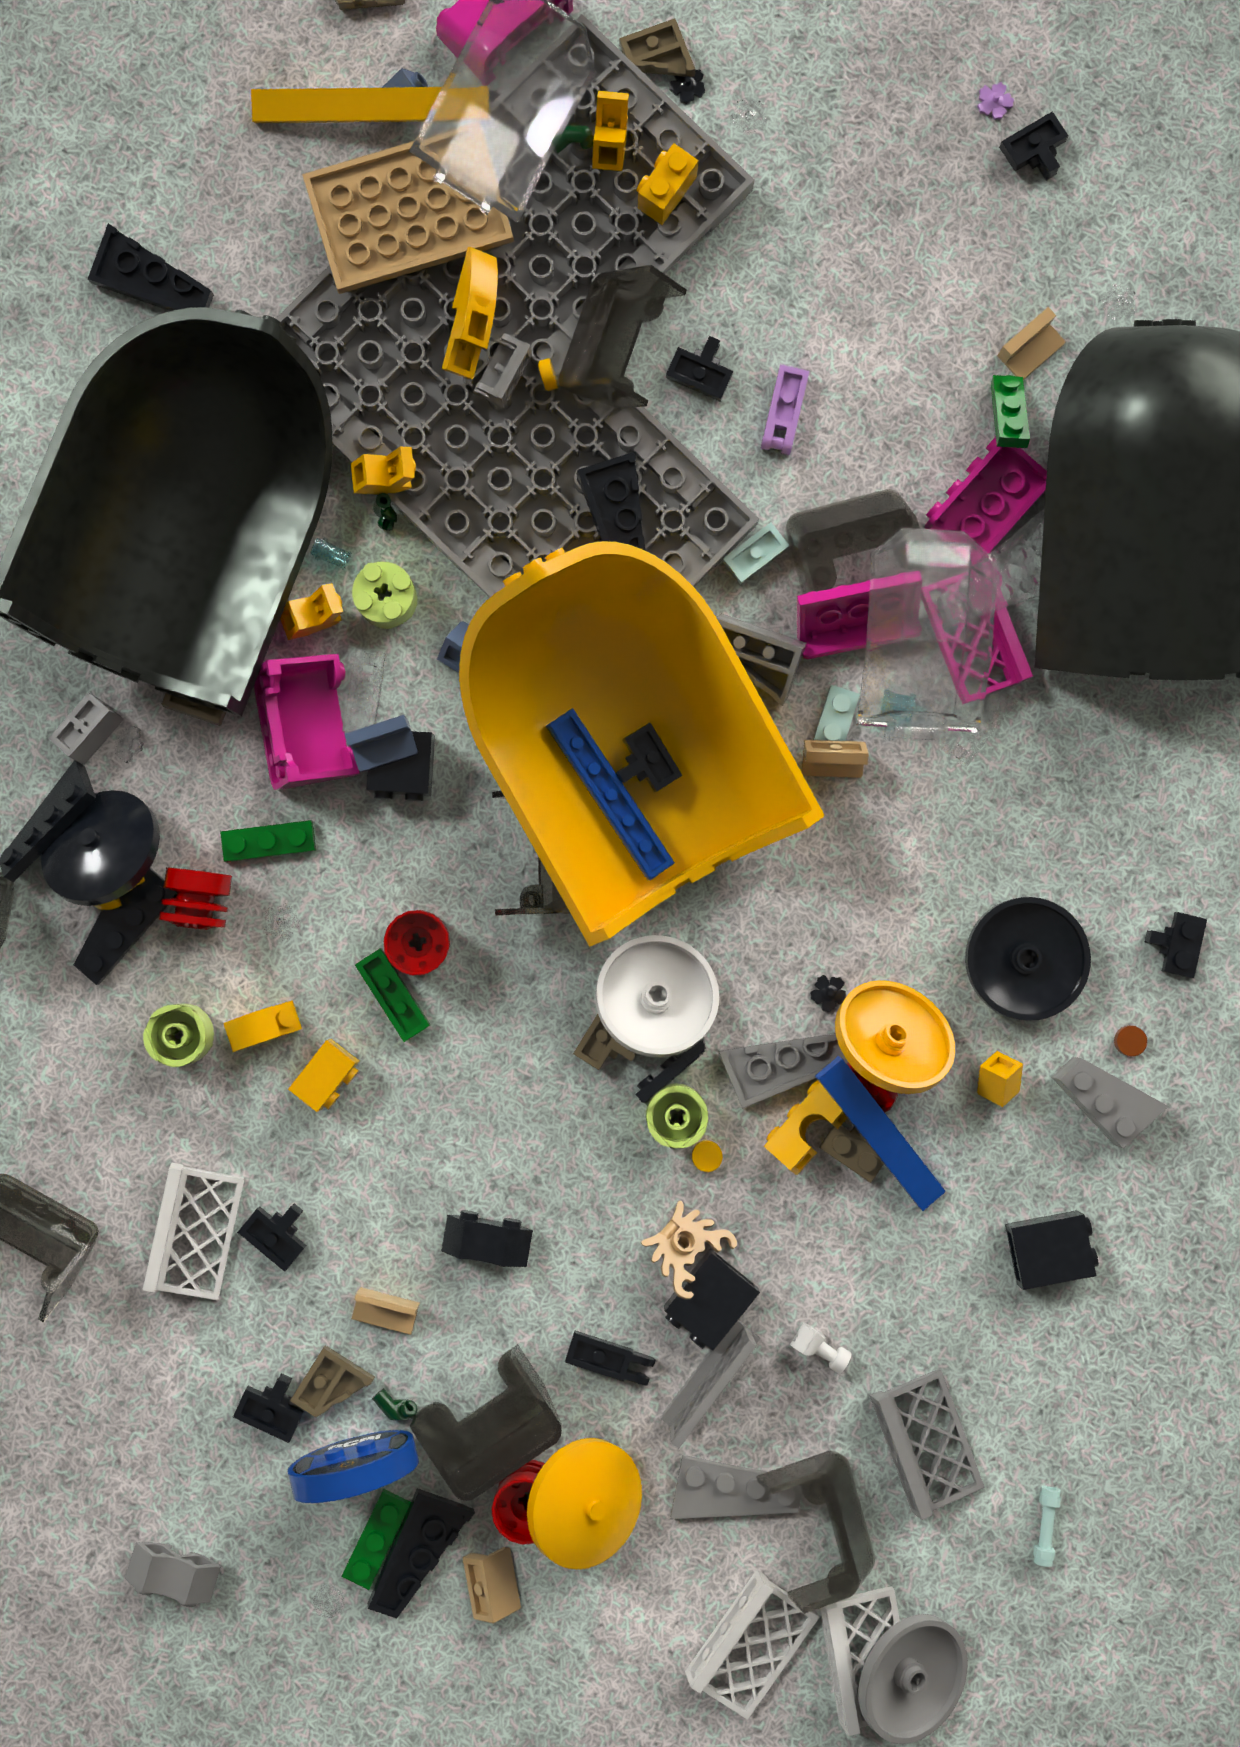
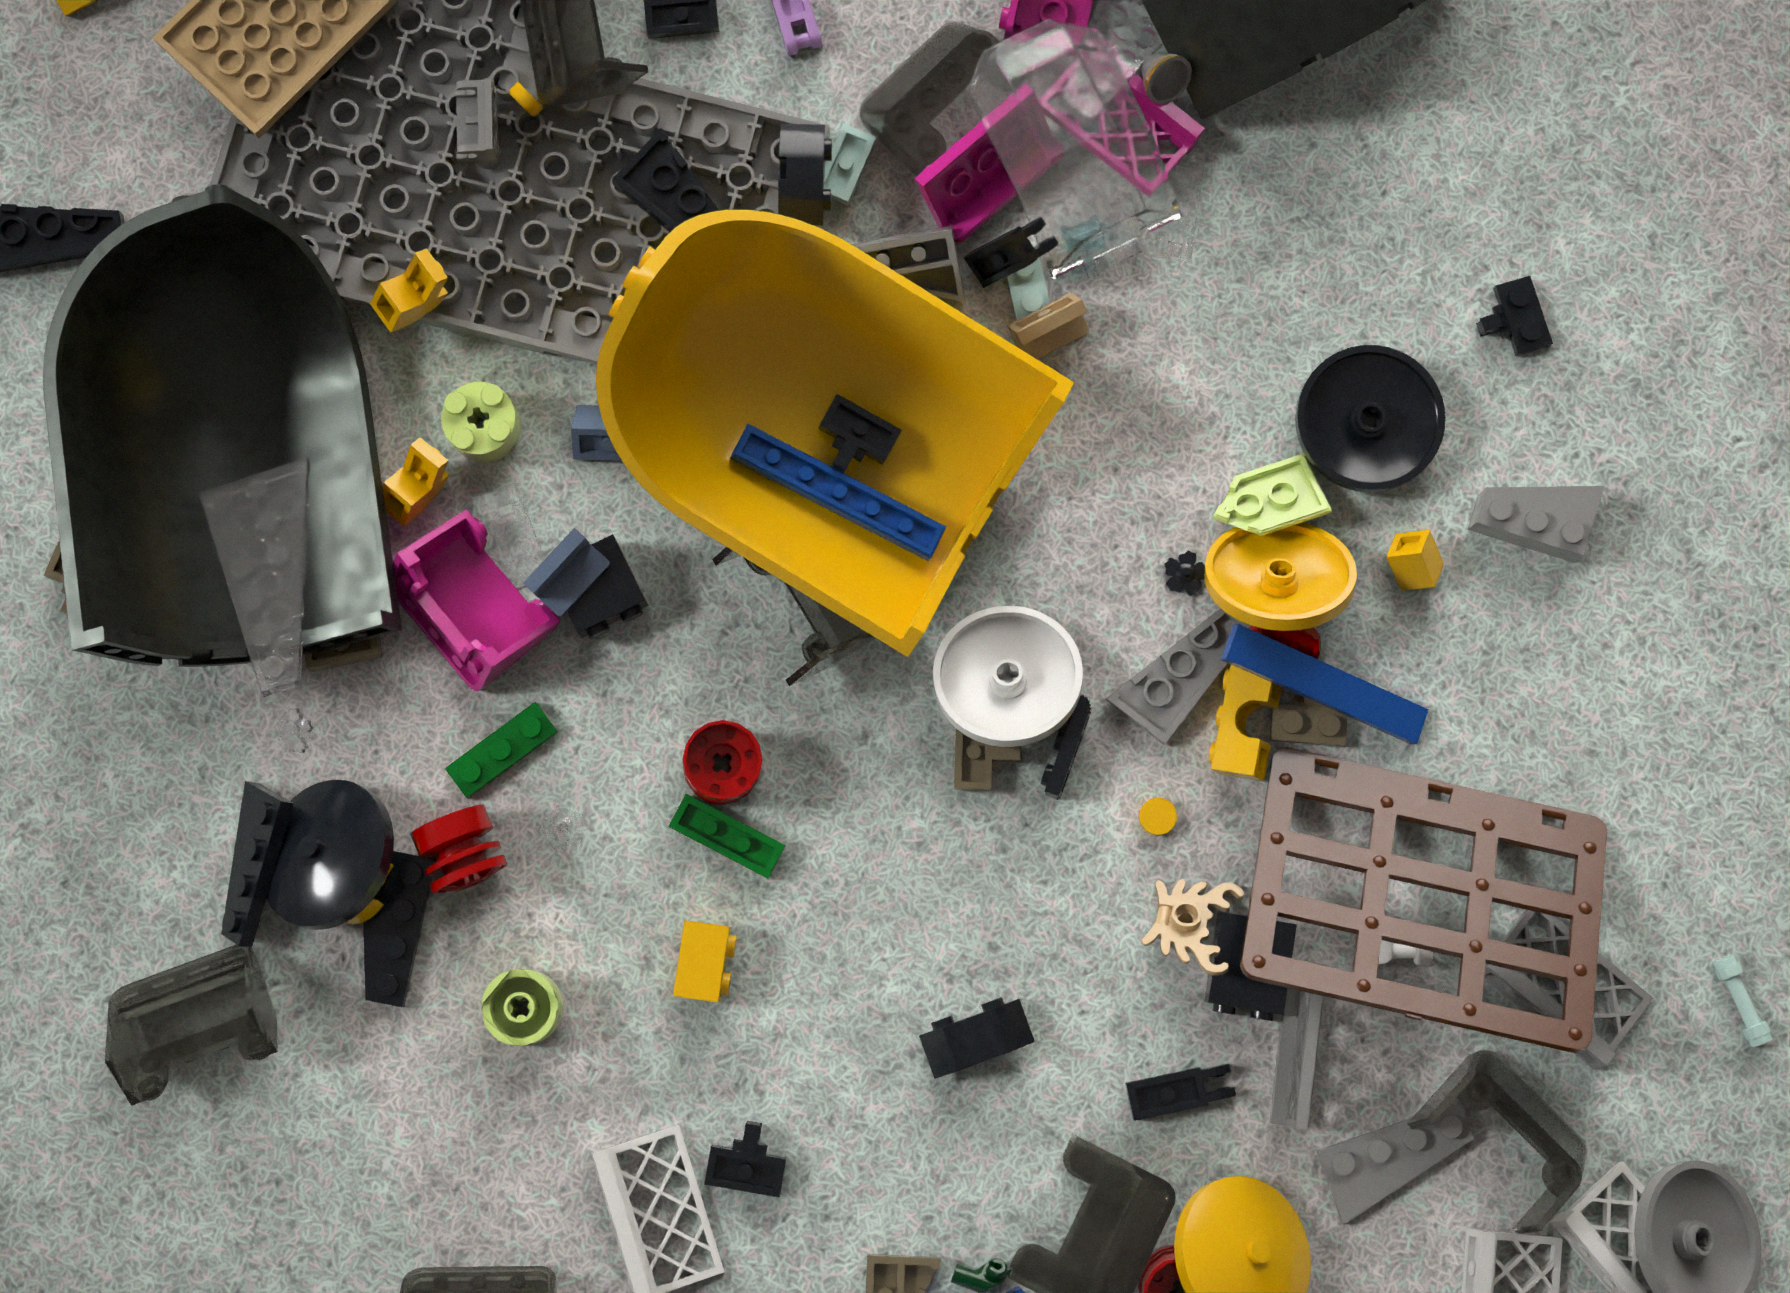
camera: 25 degrees left, 5 degrees down
(86, 728) = (239, 739): light grey hinge -> none
(171, 607) = (263, 555): none -> clear wing
(262, 1025) = (605, 948): yellow brick -> none
(330, 553) = (398, 412): clear light blue pin -> none
(384, 510) = (432, 337): dark green arm -> none
(385, 1310) = (911, 1178): tan panel -> none
(474, 315) = (415, 80): yellow slope -> none
(677, 1133) = (1120, 780): yellowish green brick -> none
(714, 550) = (803, 172): none -> black brick
(835, 688) = (1008, 253): none -> black hinge
(924, 975) = (1273, 497): none -> yellowish green tile
(931, 1280) = (1469, 812): none -> door
(1025, 622) = (1165, 77): none -> light grey piece
(1051, 1249) = (1574, 706): black brick -> none
(1130, 1040) = (1526, 444): dark orange tile -> none

